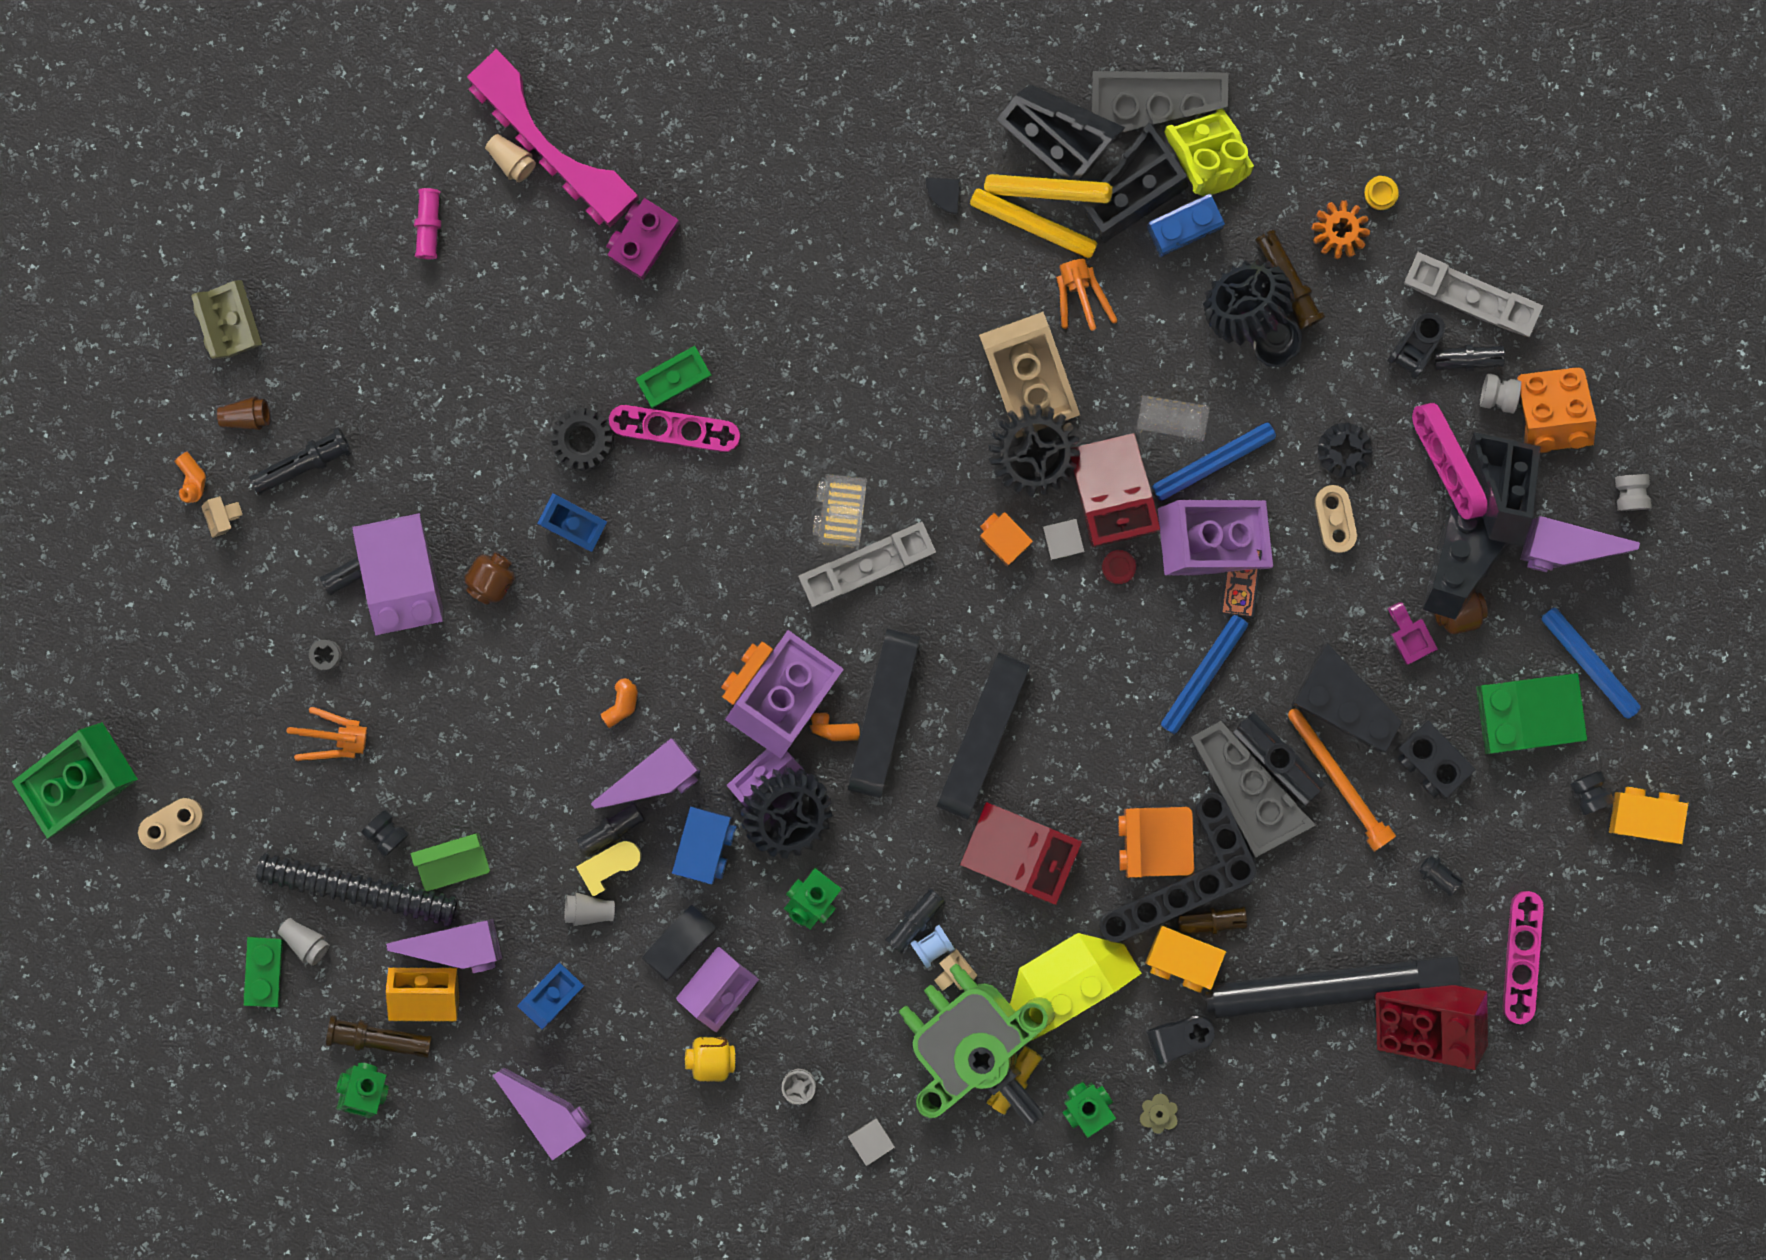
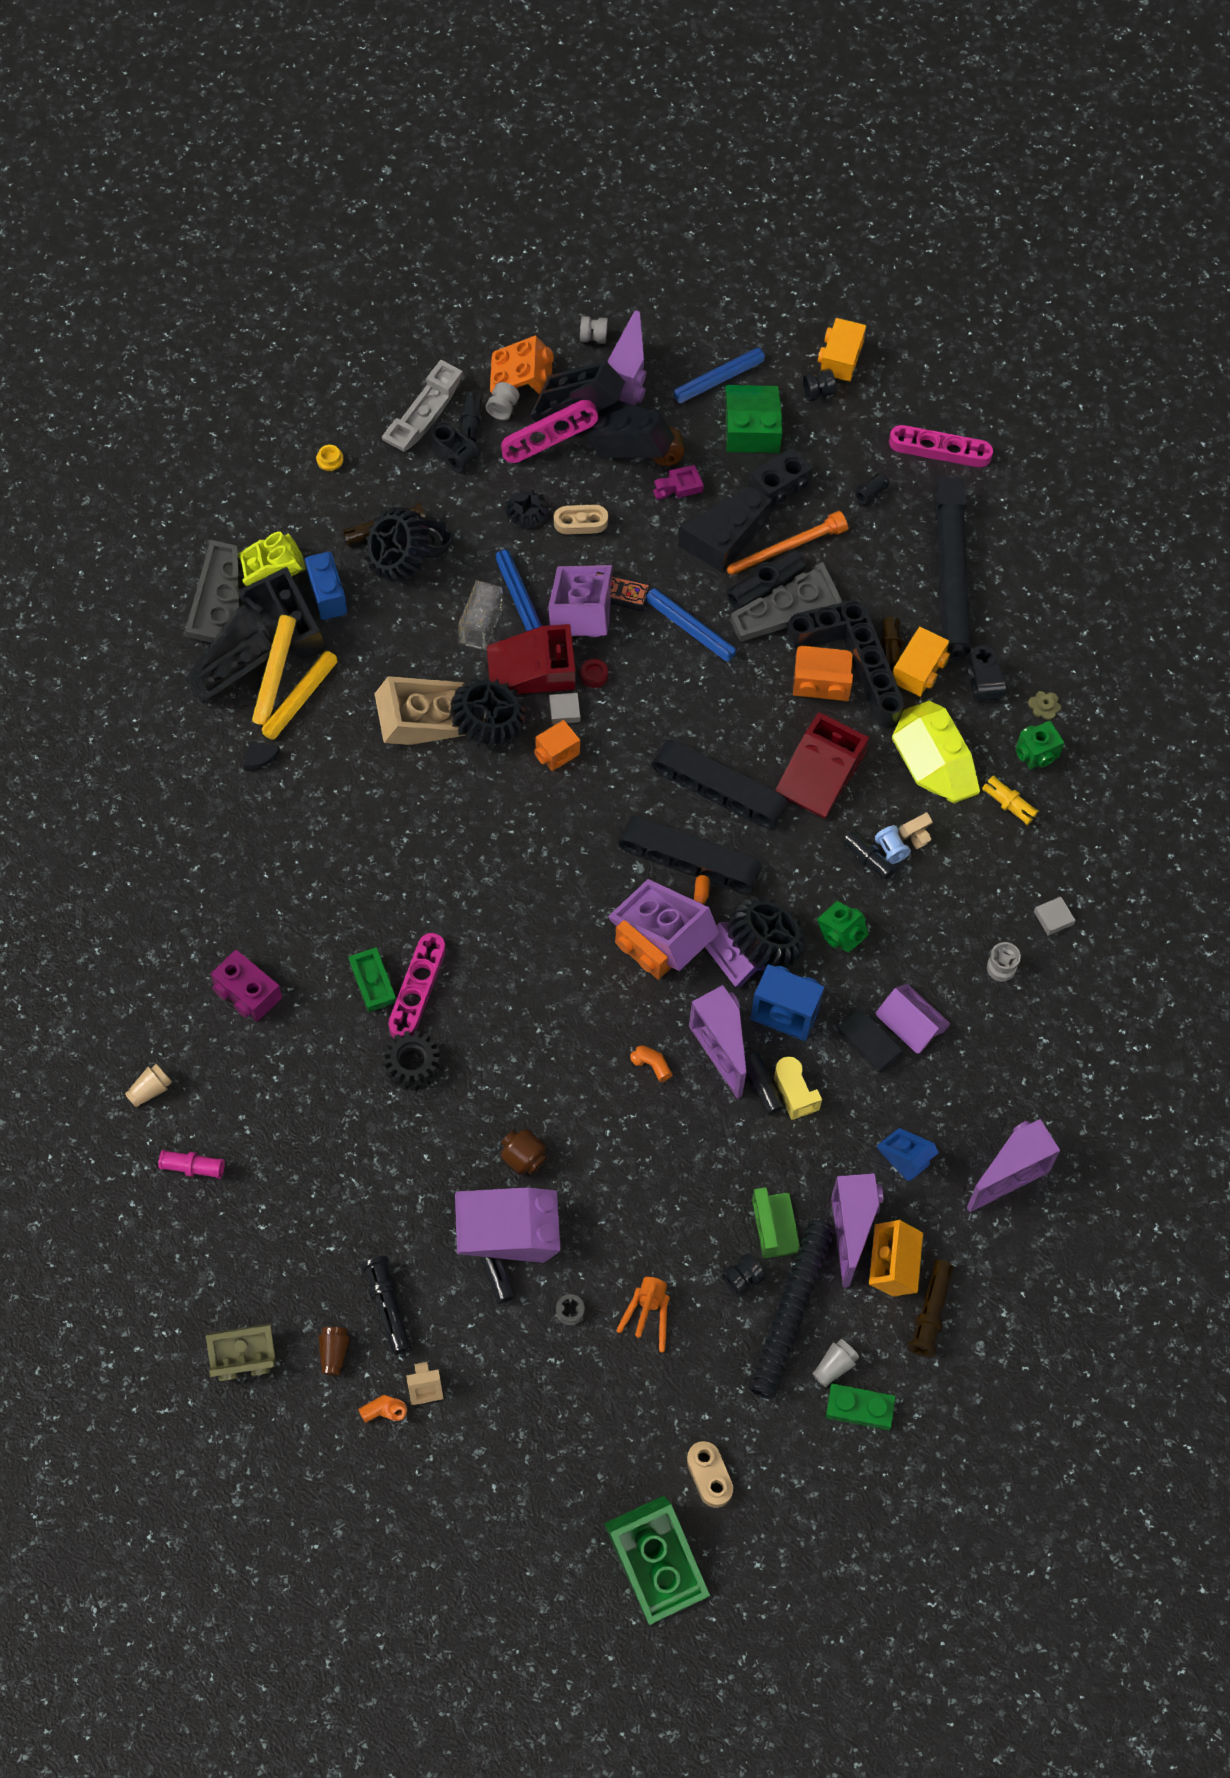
camera: 85 degrees left, 25 degrees down
(353, 1098) = (981, 1325): green brick -> none
(572, 522) = (483, 1076): blue slope -> none
(587, 909) = (832, 1115): light grey cone -> none
(600, 188) = (88, 1081): dark pink arch -> none
(710, 1059) = (974, 1027): yellow head -> none
(841, 511) = (513, 863): clear brick -> none
(867, 564) = (560, 849): light grey slope -> none
(965, 1031) = (969, 826): piece -> none
(1076, 276) = (351, 667): orange plant -> none
(1350, 238) = (352, 485): orange gear -> none
(1434, 1024) = (990, 498): dark red slope -> none

